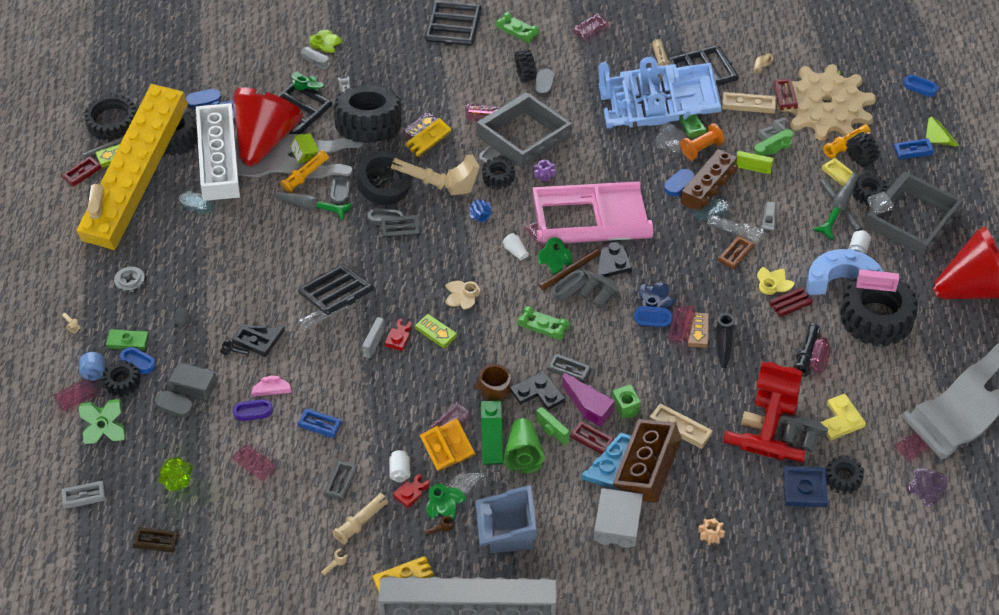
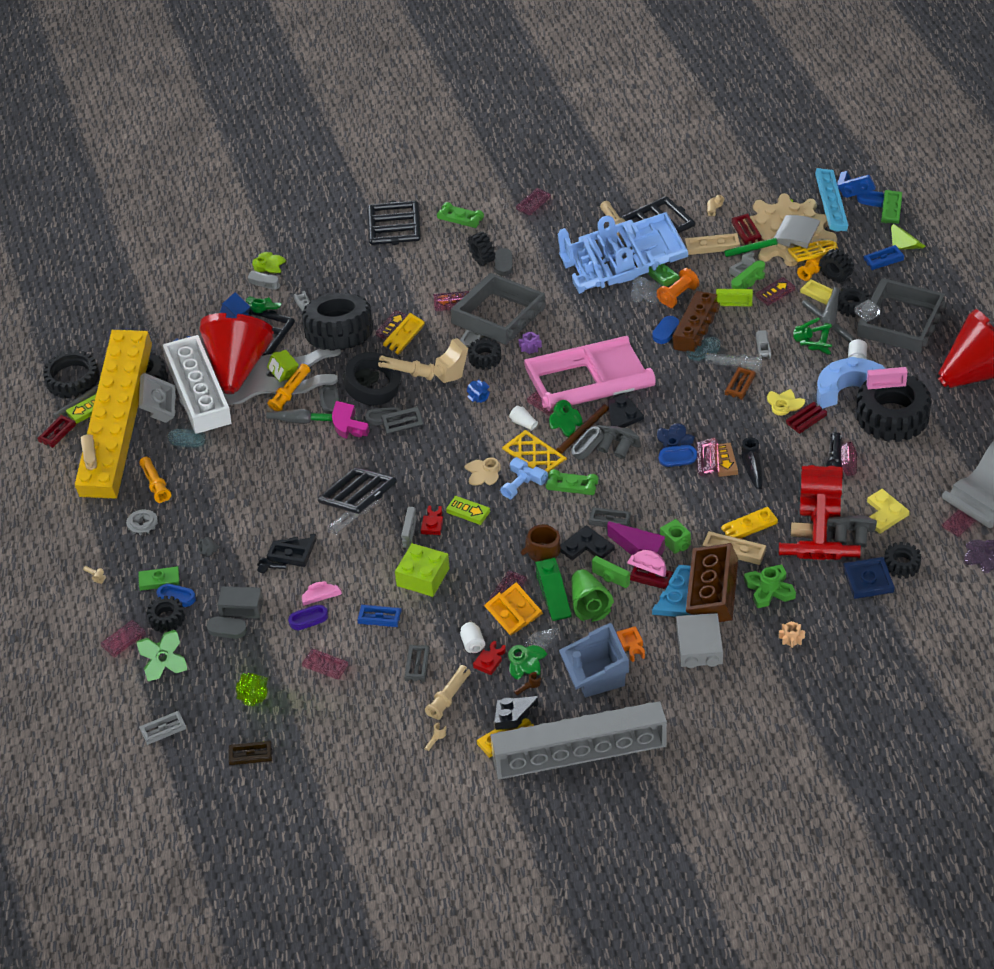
camera: 10 degrees left, 5 degrees down
(91, 366) = (132, 608): medium blue head -> none
(154, 244) = (156, 484): none -> light orange pin
(178, 157) = (157, 397): none -> light grey plate
(203, 98) = (162, 337): tile -> none
(277, 83) = (234, 305): none -> blue slope
(344, 214) = (343, 421): none -> dark pink brick
(372, 384) = (422, 569): none -> lime brick
(414, 553) = (512, 711): none -> wing
(500, 305) = (524, 474): none -> light blue bar
(510, 296) = (532, 464): none -> yellow window
(551, 504) = (631, 642): none -> orange plate
(591, 423) = (649, 561): none -> bright pink tile
(703, 403) = (750, 523): none -> yellow hinge
(704, 472) = (769, 584): none -> bright green plant
(785, 113) = (750, 247): none -> green bar
(796, 163) = (775, 291): none -> clear pink tile
(811, 213) = (804, 333): none -> green plant
(833, 105) = (797, 230): none -> light grey slope
(851, 123) = (822, 251): none -> yellow window
(877, 80) = (831, 200): none -> medium azure plate
(902, 70) = (852, 187): none -> blue bracket
(935, 97) = (891, 206): none -> bright green plate

